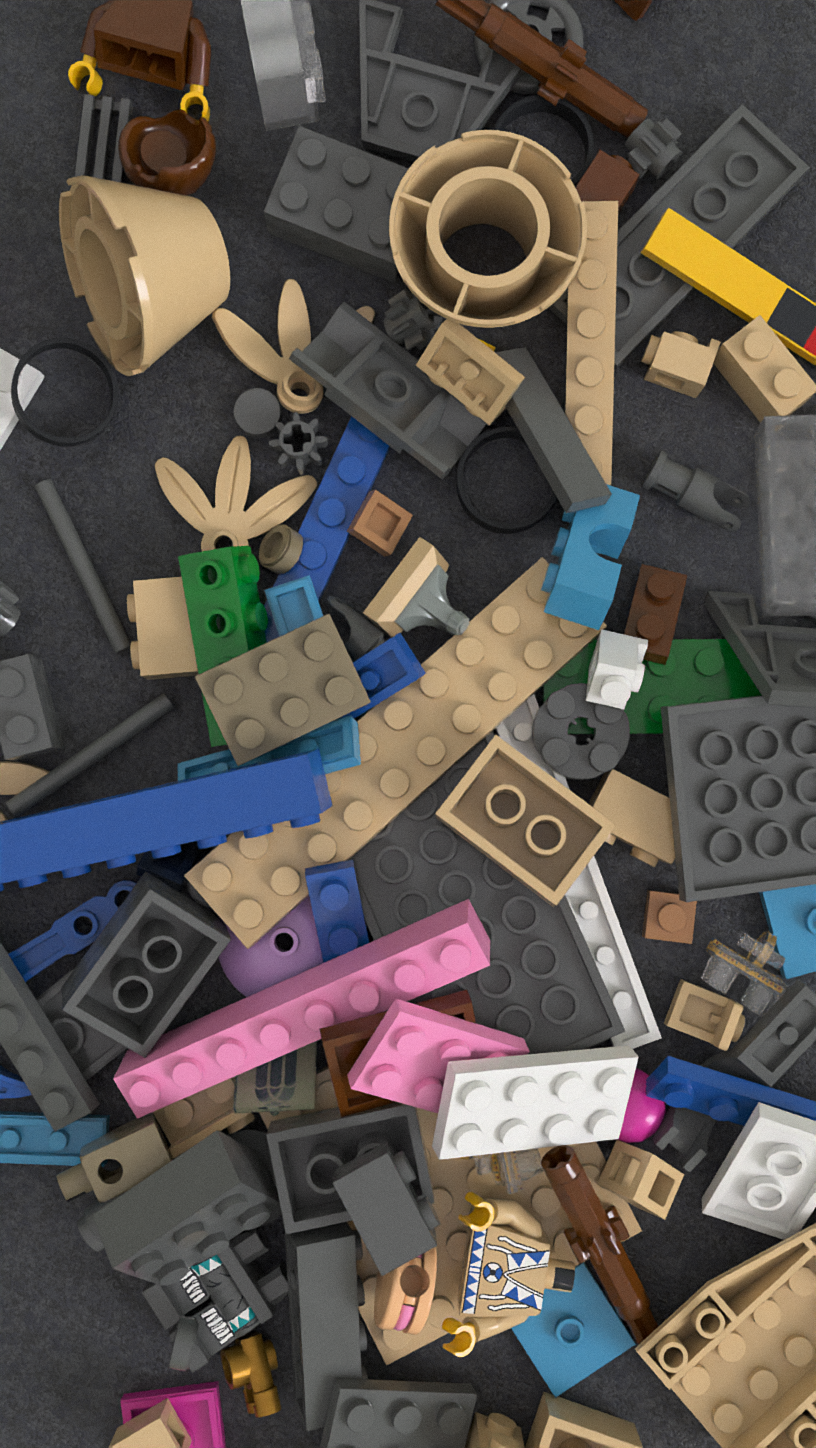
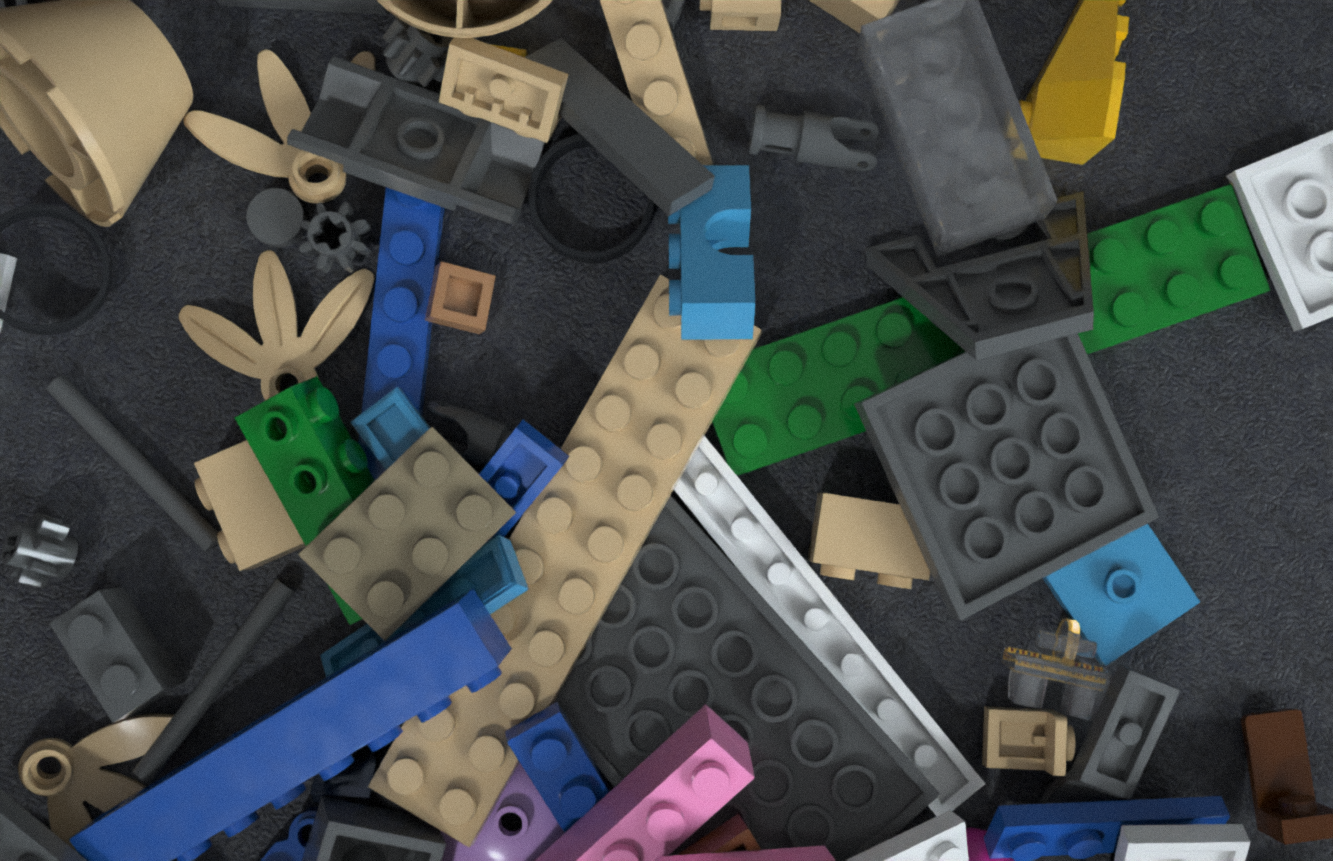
camera: 15 degrees left, 0 degrees up
(280, 549) = (355, 367): dark tan tile -> none
(416, 595) = (530, 367): piece -> none
(525, 821) = (740, 591): tan brick -> none
(560, 749) = (791, 433): dark grey plate -> none
(615, 669) = (787, 376): white brick -> none
(656, 610) = (811, 297): reddish brown plate -> none
(668, 917) = (946, 641): medium nougat plate -> none

